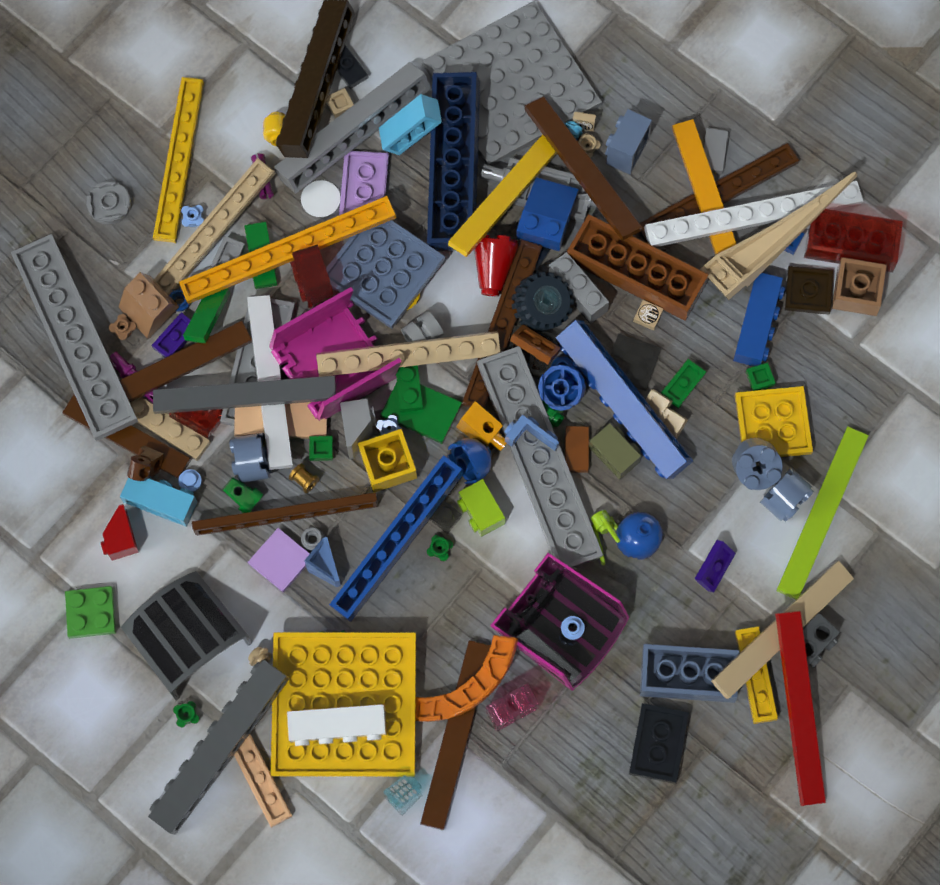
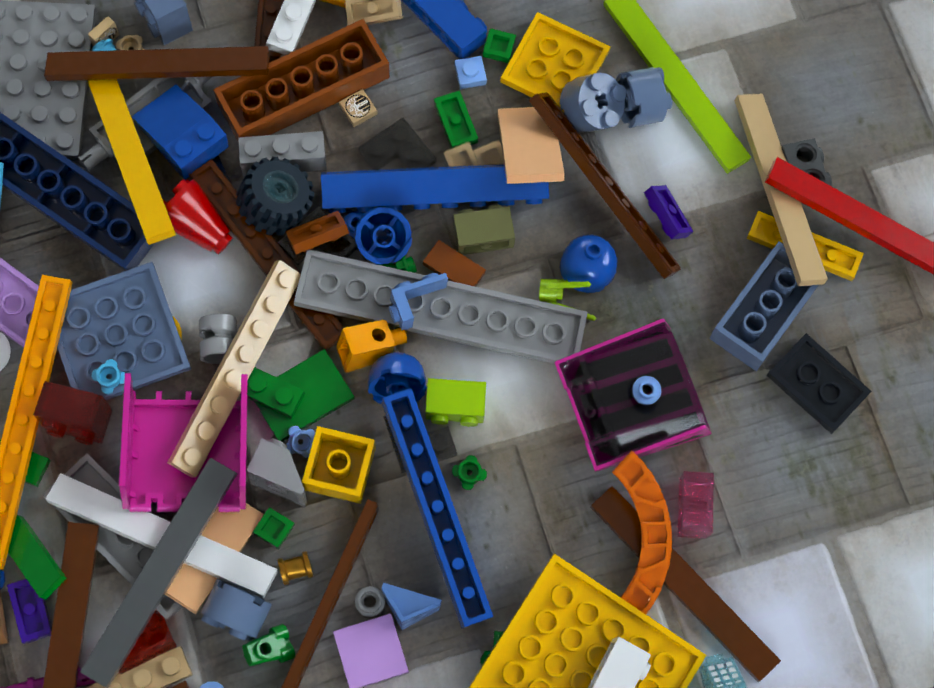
camera: 65 degrees left, 0 degrees up
(350, 275) = (101, 373): none -> medium azure plate
(694, 441) = (529, 147): none -> light nougat tile
(702, 510) = (605, 185): none -> reddish brown tile
(727, 371) = (470, 72): none -> light blue plate

